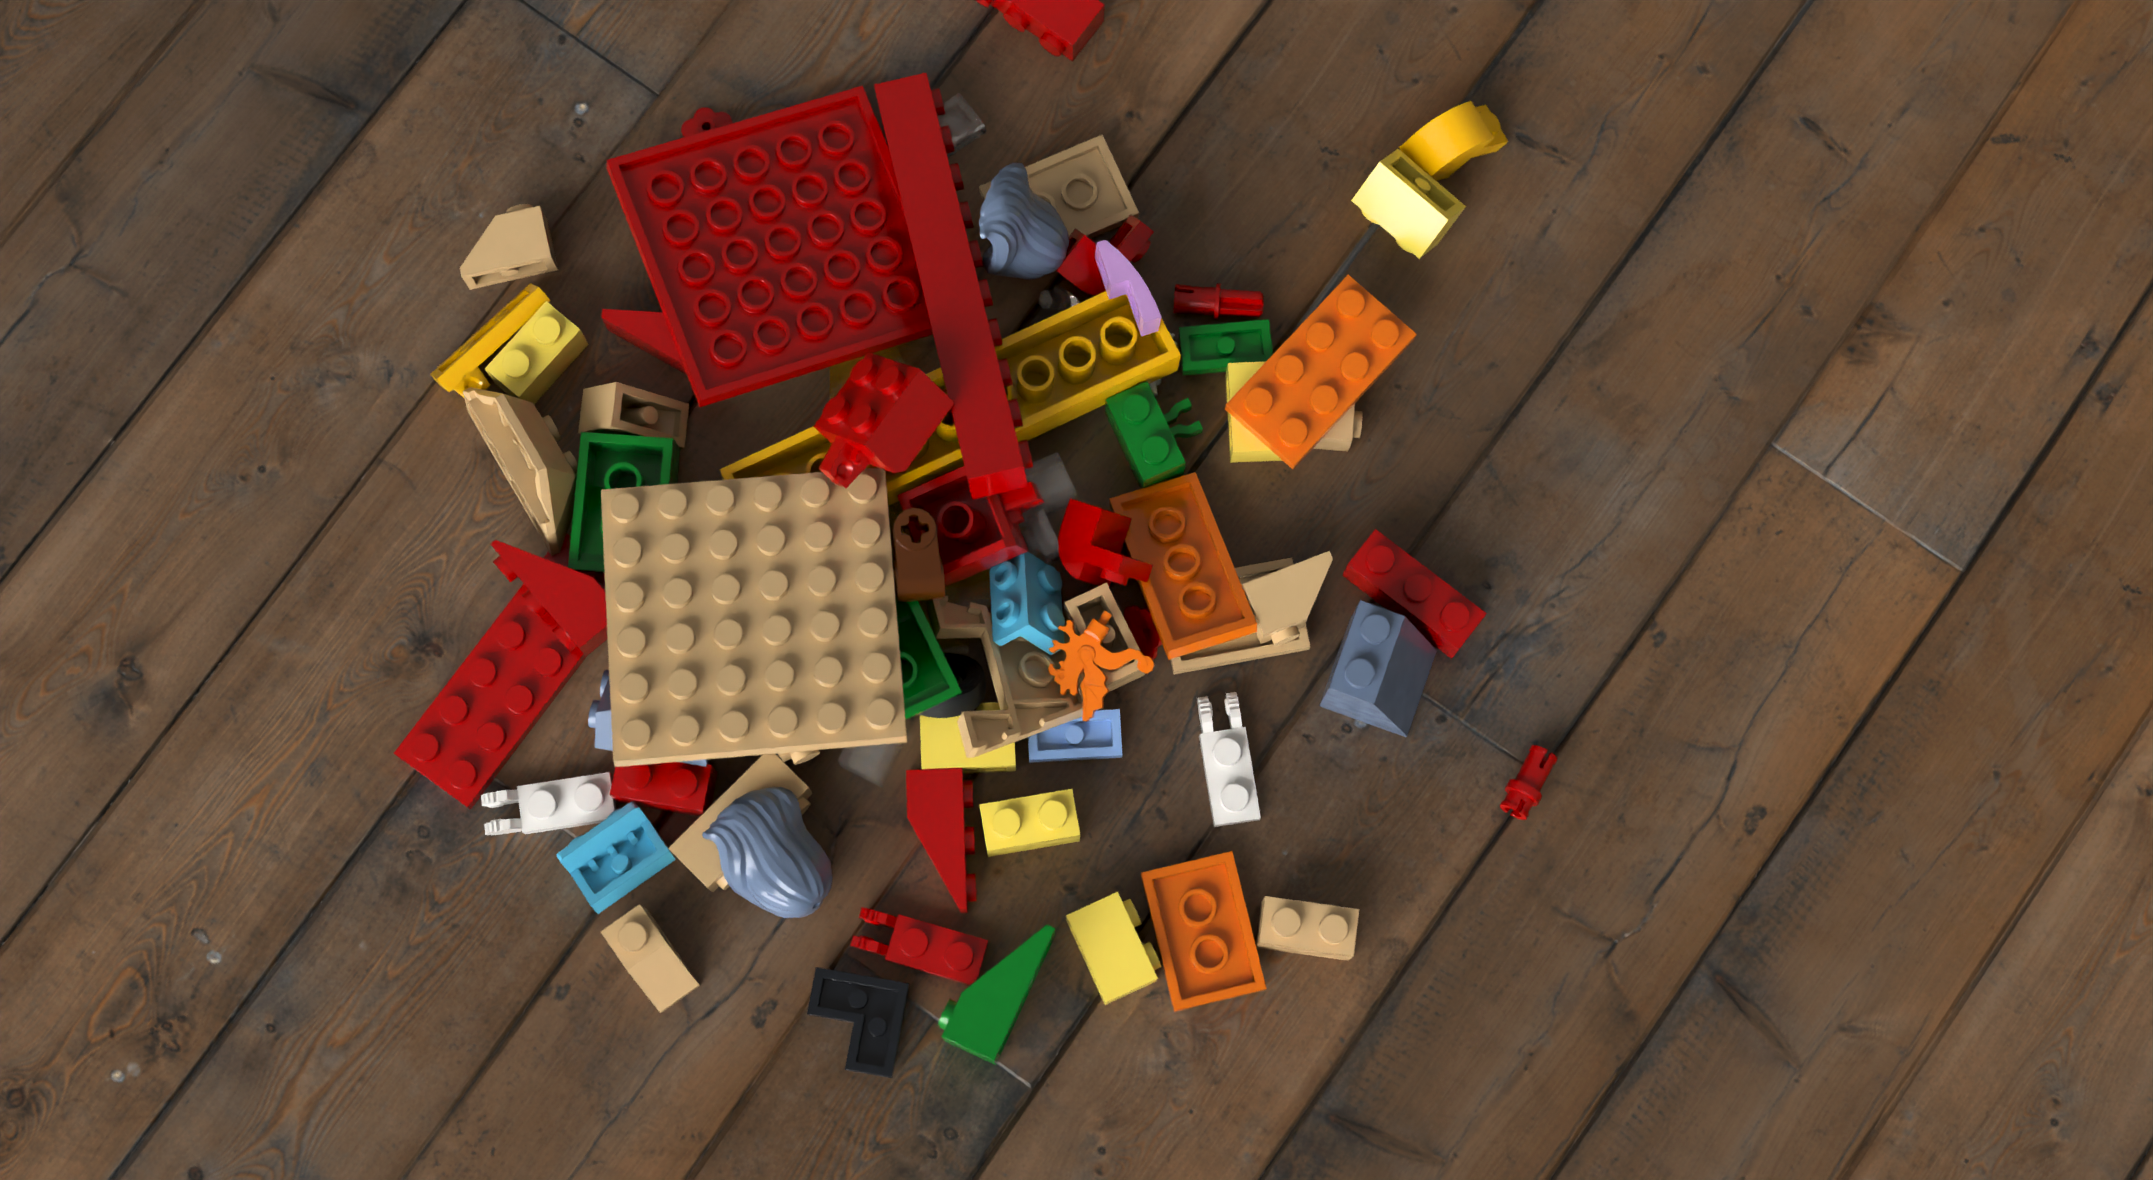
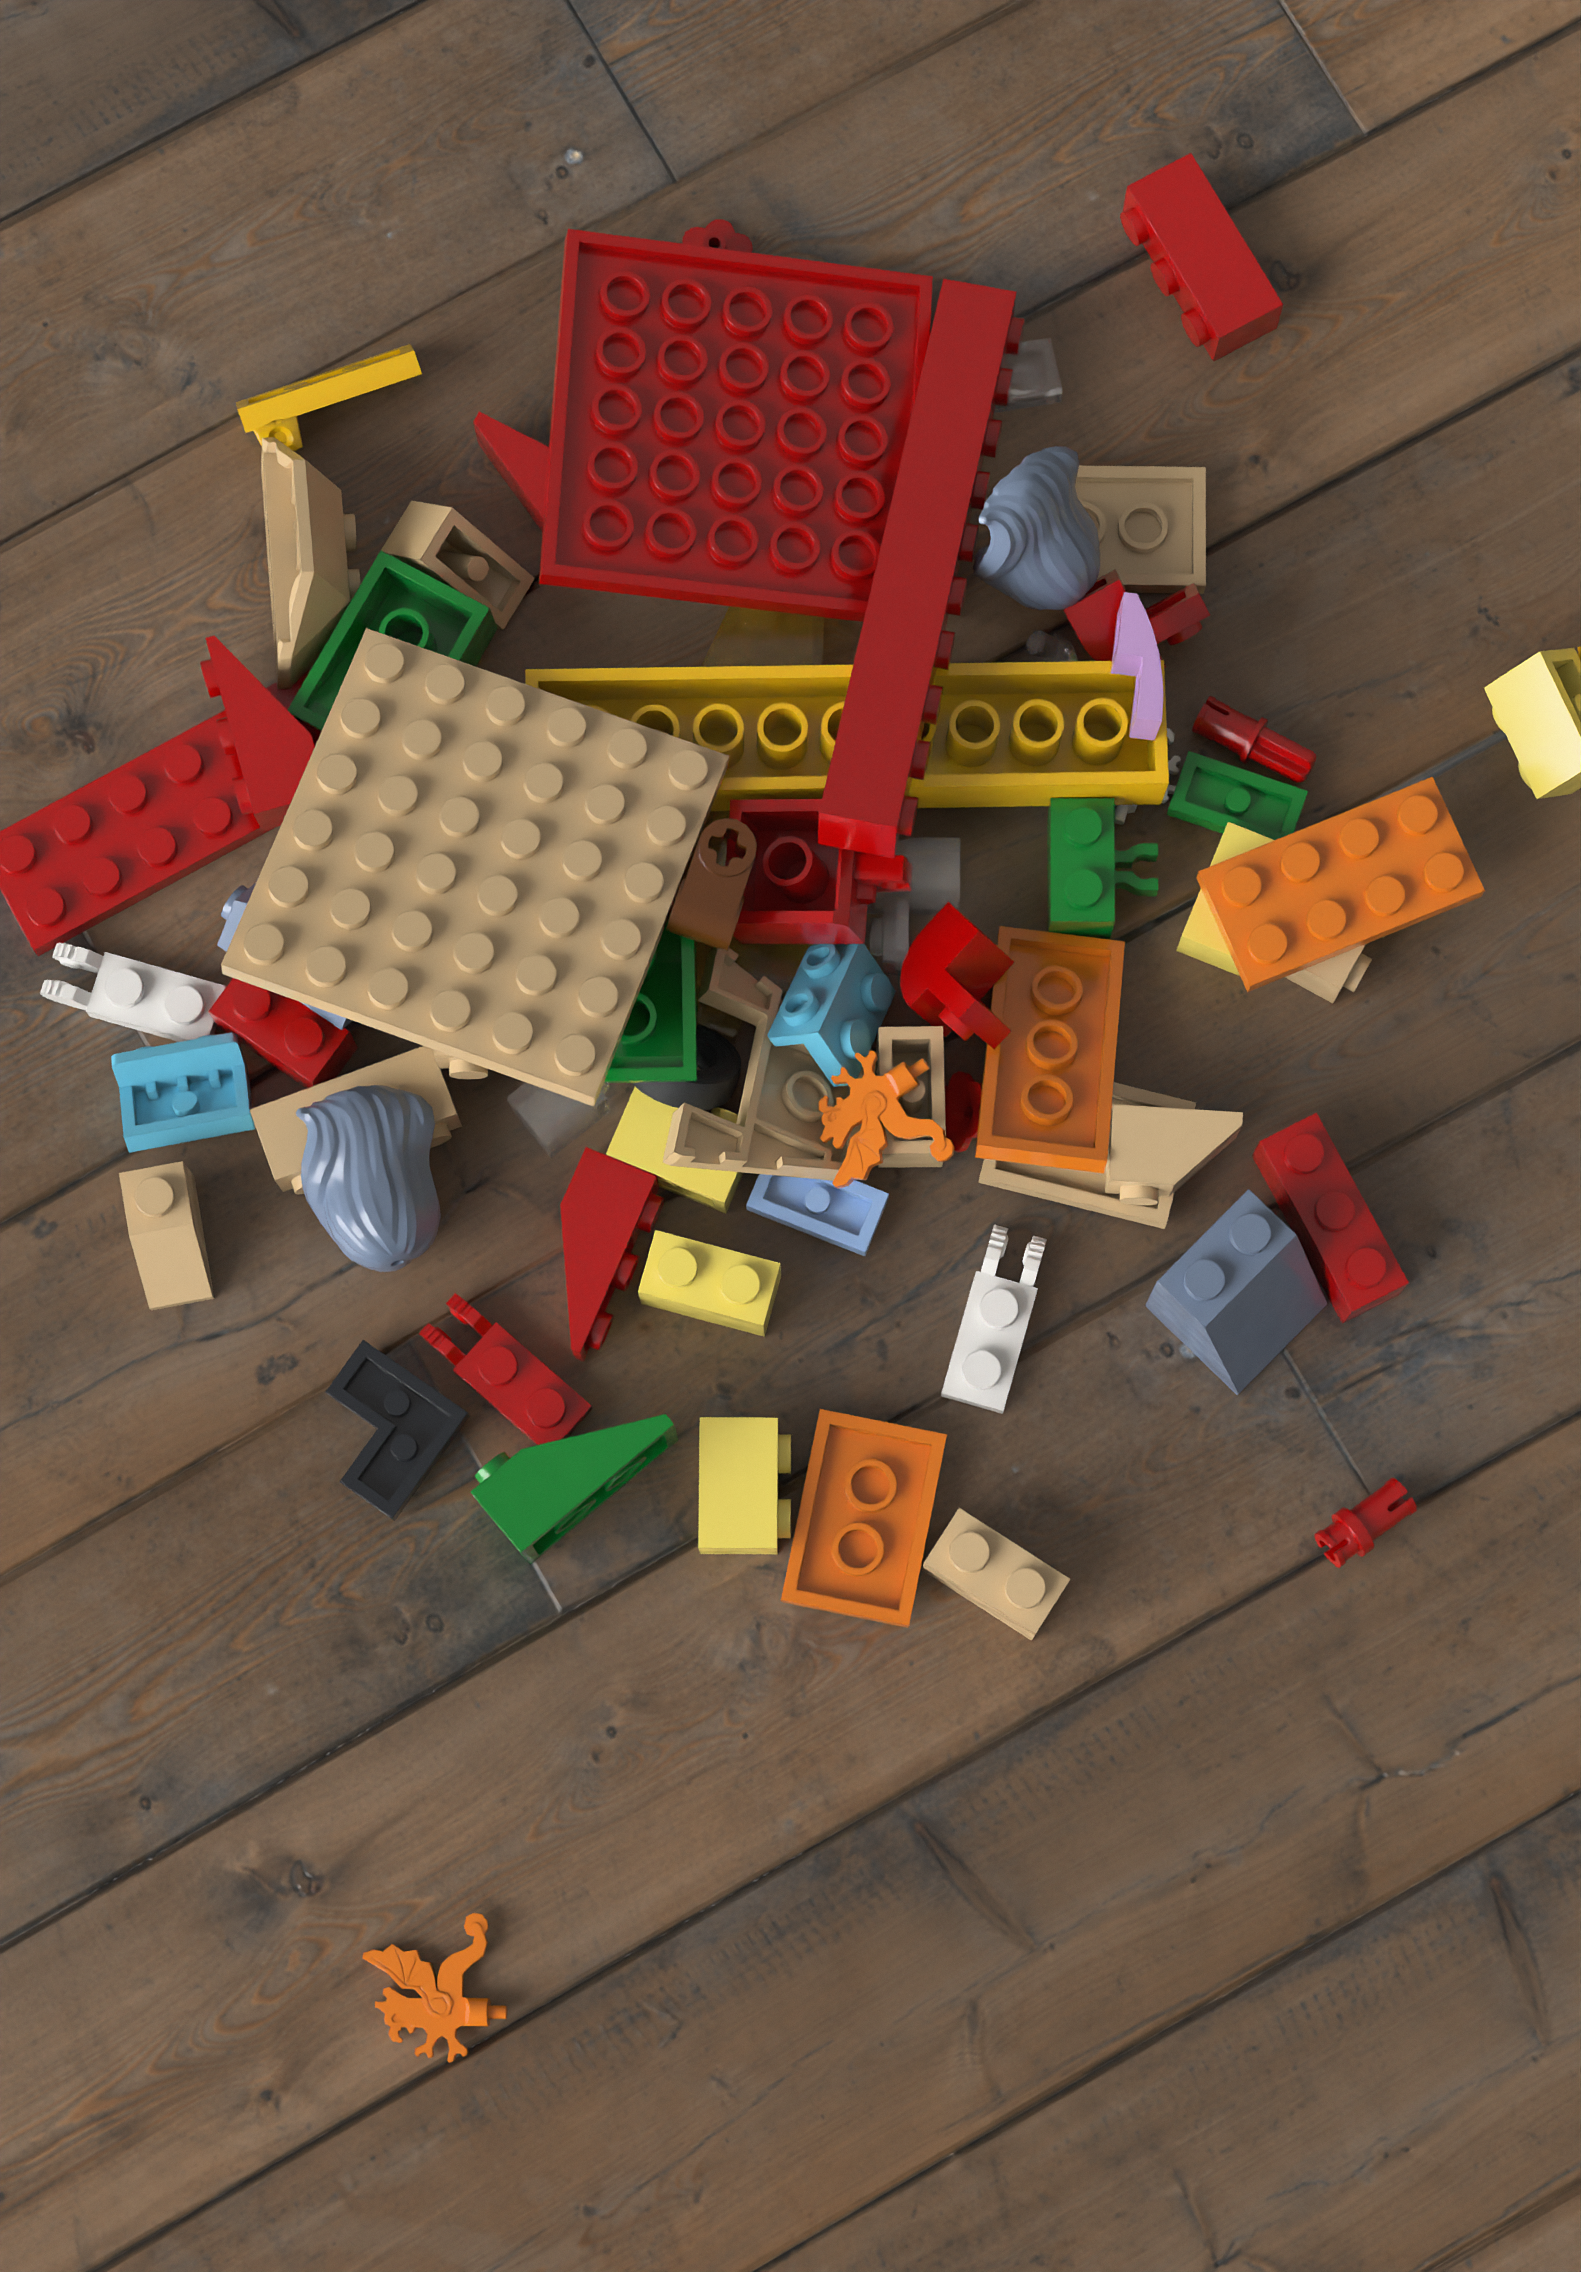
camera: 30 degrees right, 0 degrees up
(511, 248) = (404, 290): tan slope -> none
(537, 355) = (375, 435): light yellow brick -> none
(879, 418) = (746, 691): red hinge -> none

